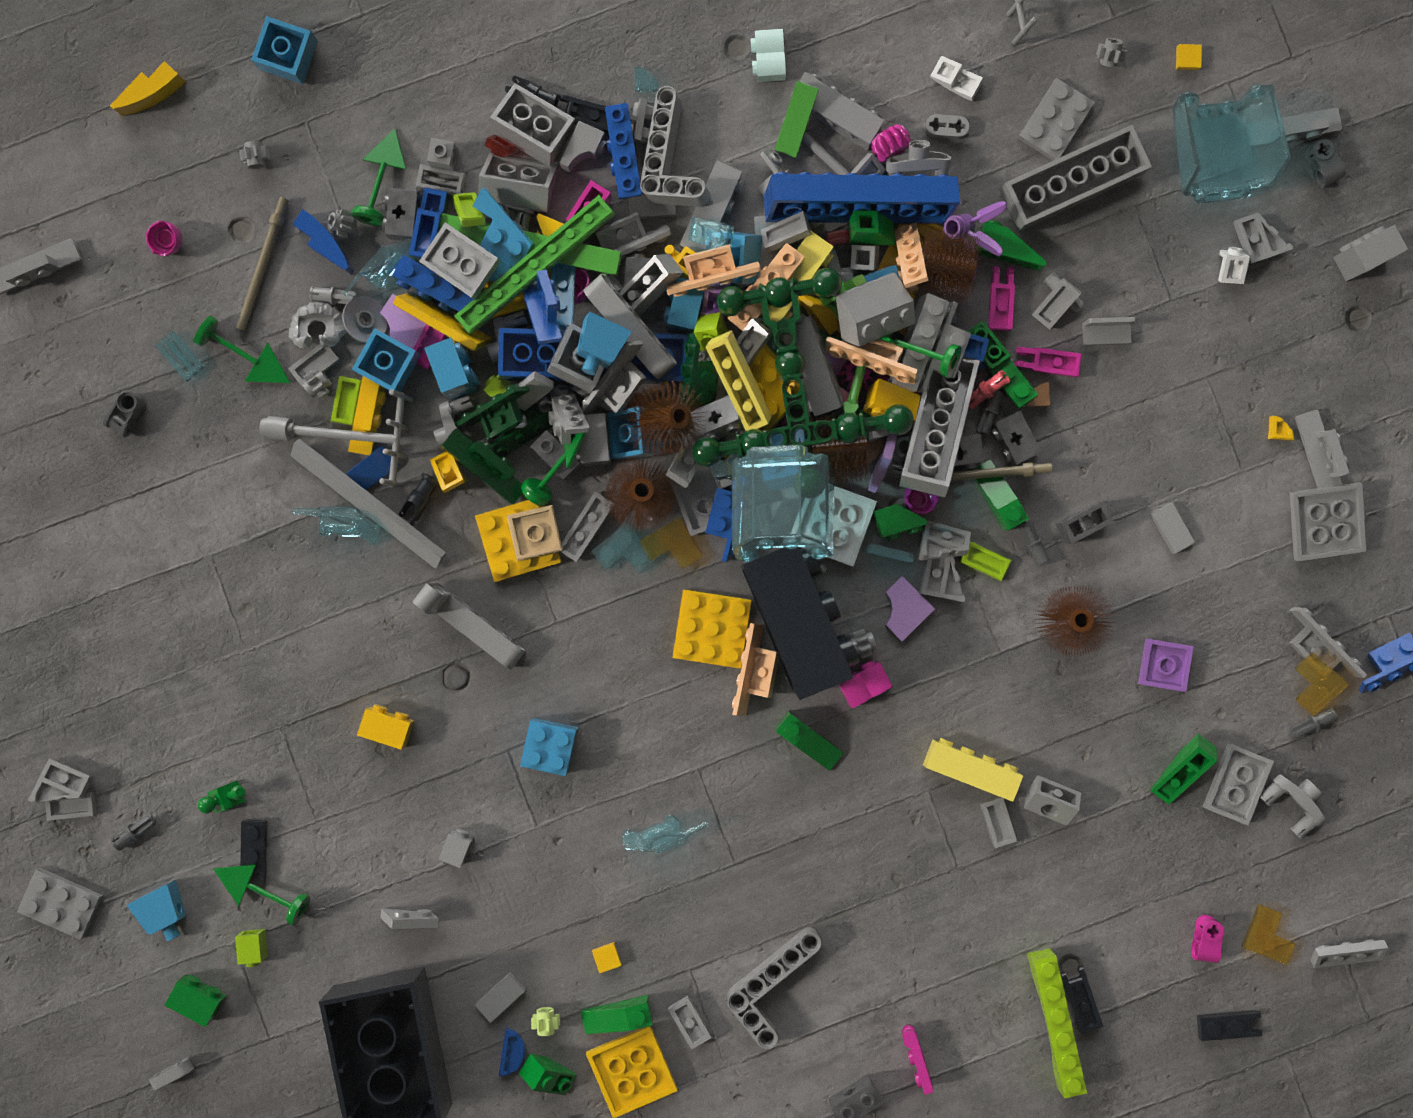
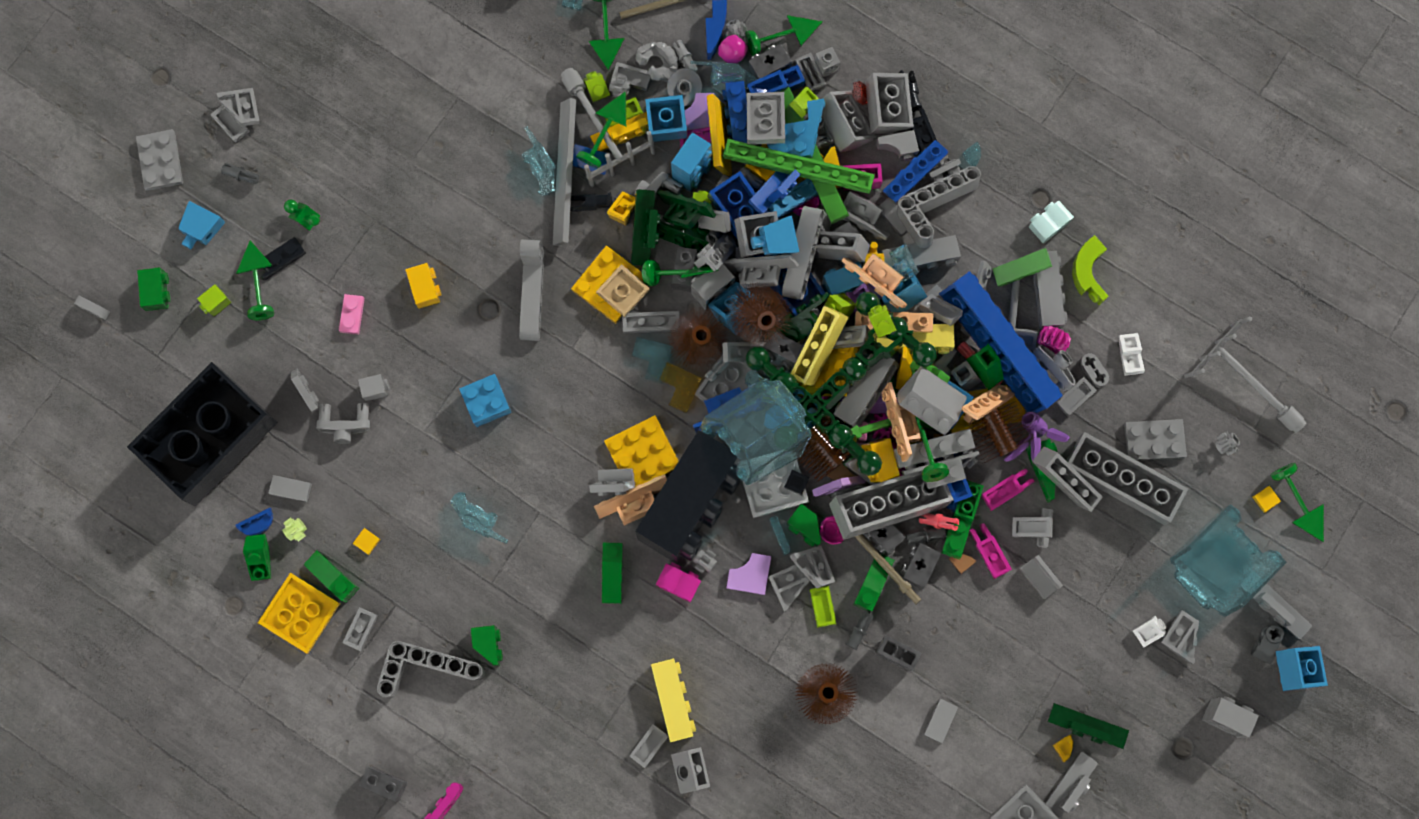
camera: 55 degrees right, 10 degrees down
(299, 407) = (596, 86): none -> lime bracket
(342, 409) = (613, 111): none -> green piece
(360, 241) = (732, 49): none -> dark pink hair
(364, 818) = (351, 314): none -> bright pink plate
(477, 908) = (343, 429): none -> light grey connector
(682, 496) = (716, 370): none -> light grey axle
(722, 678) = (613, 481): none -> light grey bracket
(764, 301) = (881, 320): none -> lime bracket
(790, 910) = (485, 642): none -> green slope
(839, 60) = (1082, 270): none -> lime arch
(850, 499) = (796, 482): none -> black tile
(960, 162) = (1075, 396): none -> light grey tile
(1039, 234) = (1067, 479): none -> light grey brick
(1165, 665) = (842, 784): medium lavender plate -> none
(1241, 28) = (1312, 521): none -> green piece
(1278, 393) = (1083, 724): none -> dark green bracket
(1374, 149) = (1301, 668): none -> dark azure brick

